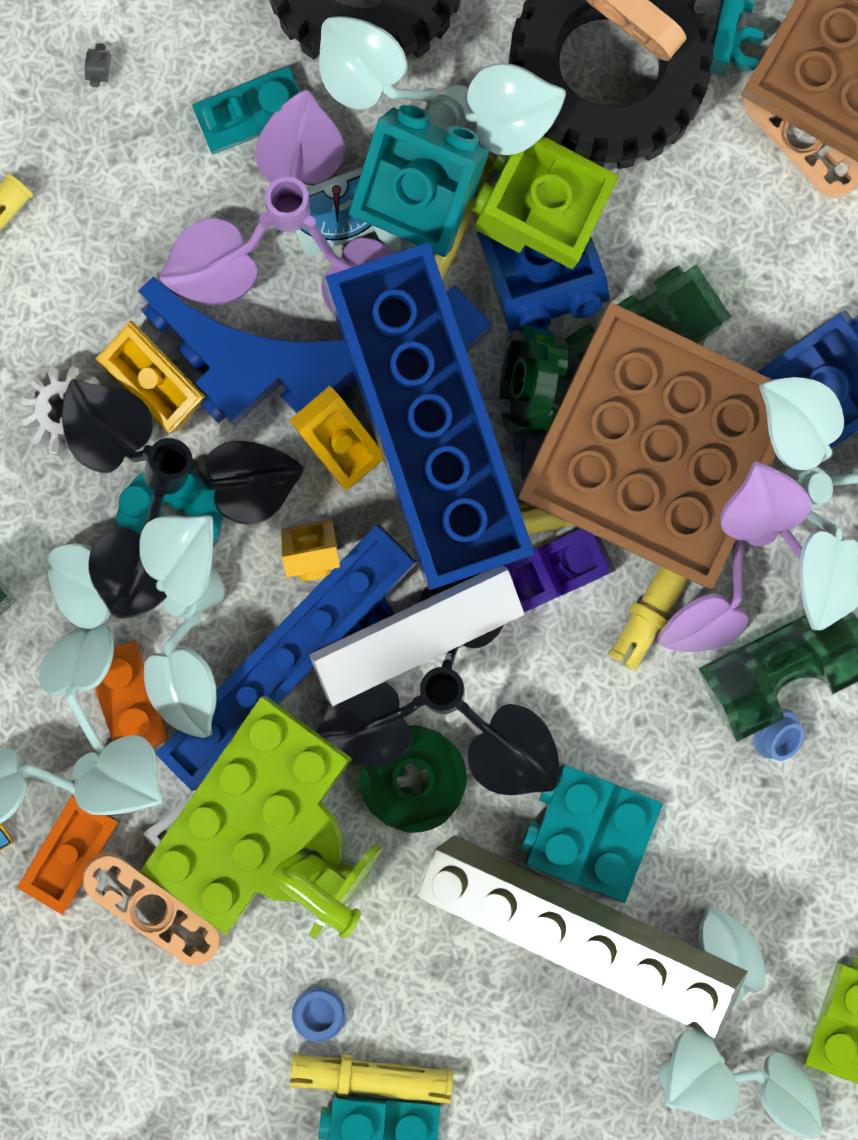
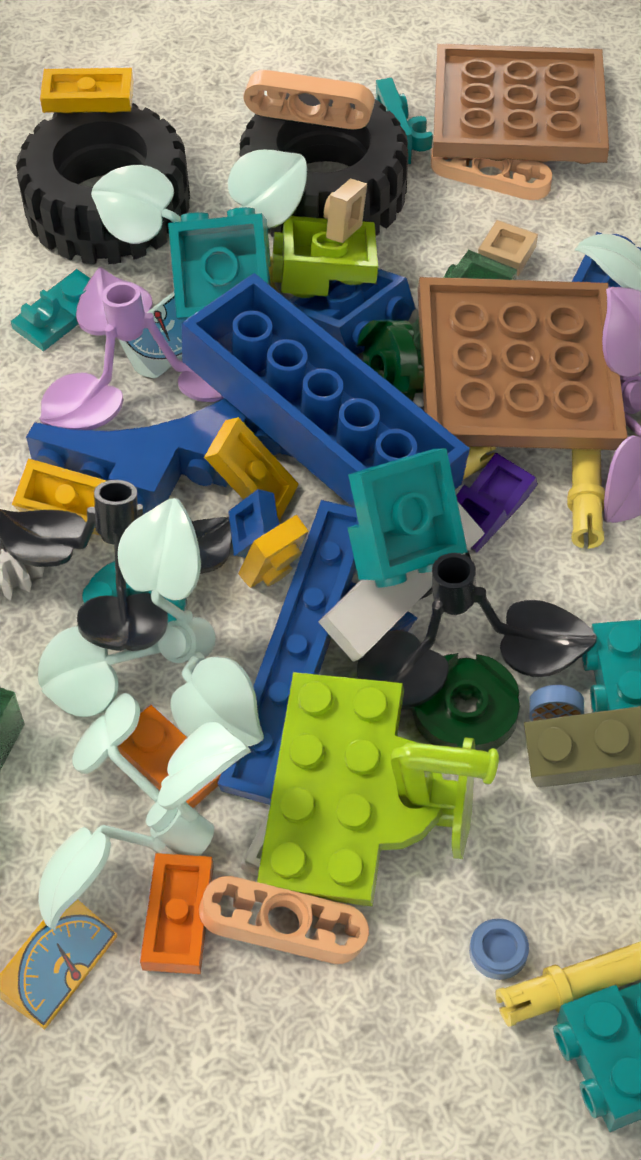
camera: 25 degrees left, 30 degrees down
(314, 496) = (251, 520): none -> blue plate
(428, 612) = (404, 517): none -> teal plate
(489, 825) = (555, 702): none -> medium blue tile
(581, 168) = (345, 210): none -> tan plate
(752, 260) = (509, 245): none -> tan plate

